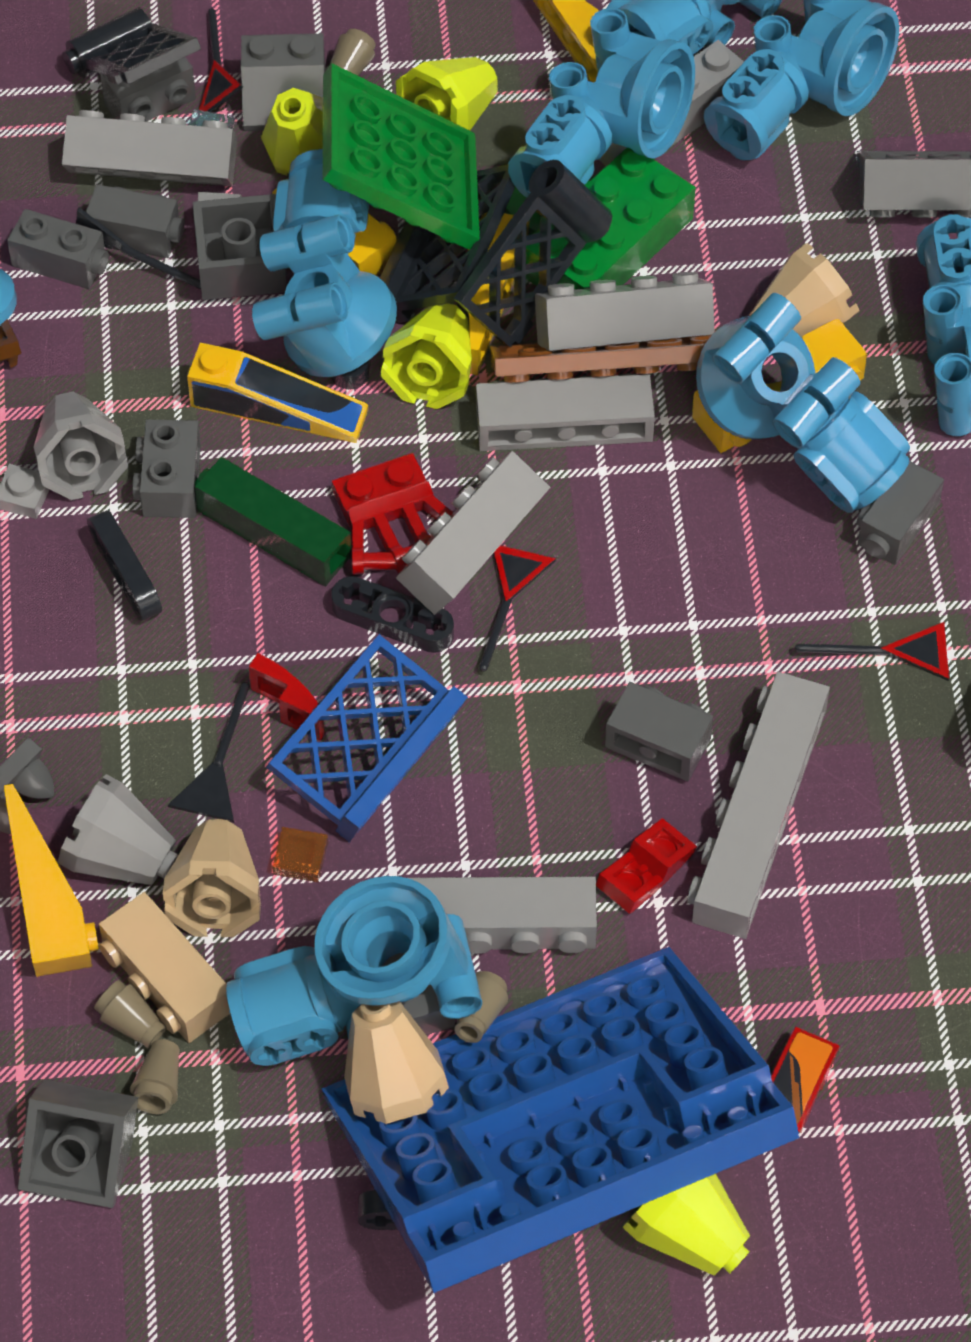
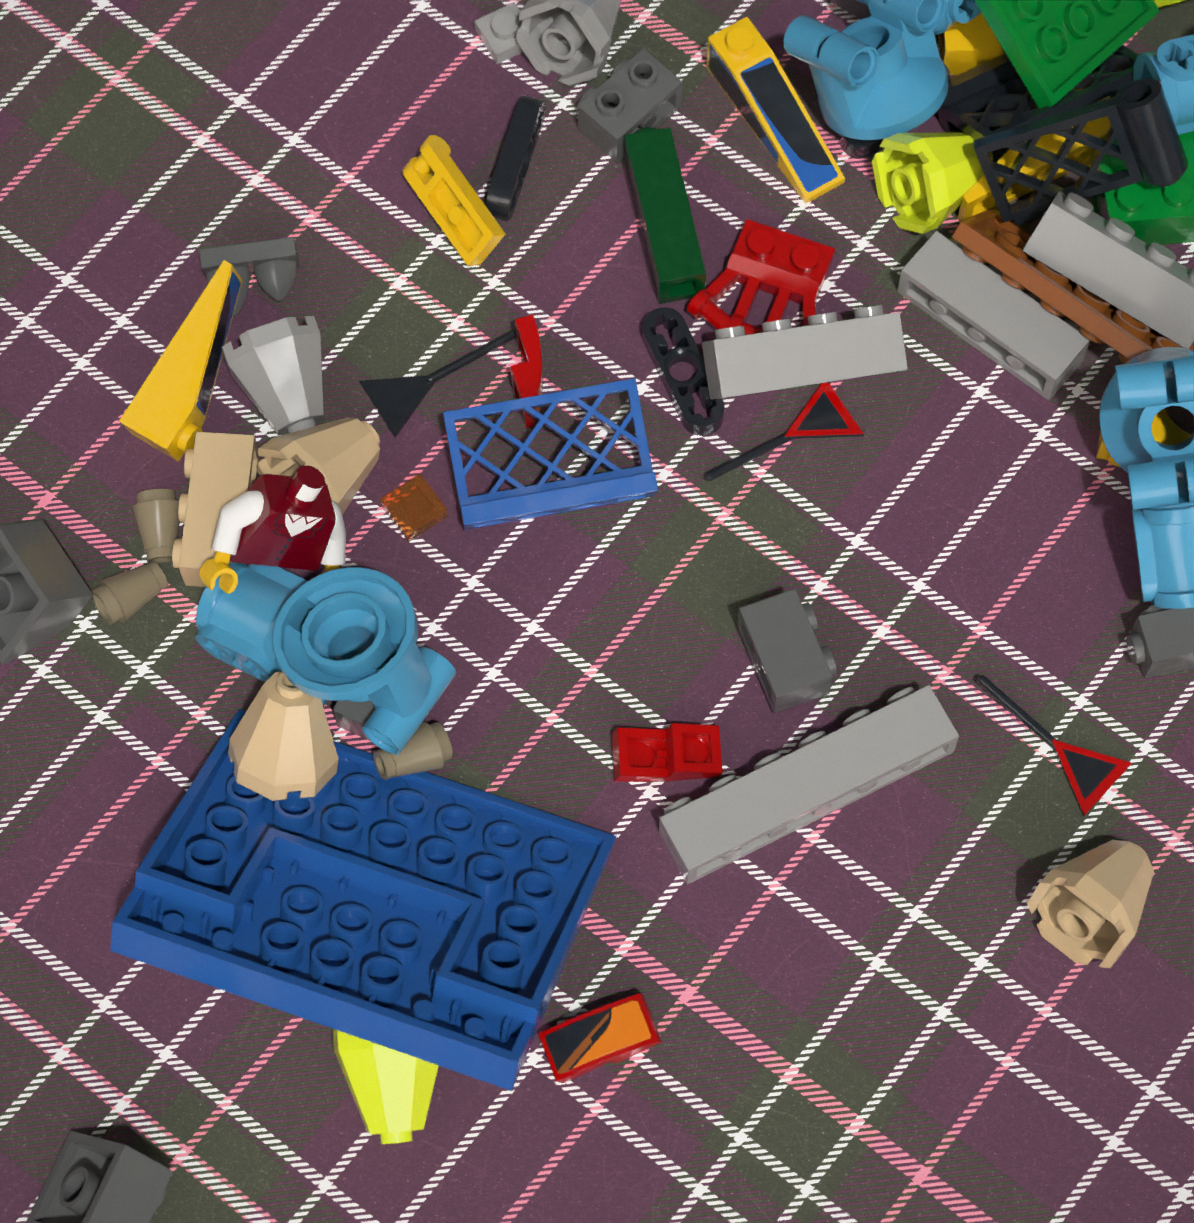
camera: 45 degrees right, 10 degrees up
(112, 628) = (453, 201): none -> yellow plate
(244, 922) = (280, 525): none -> torso
(521, 911) = (512, 694): light grey brick -> none

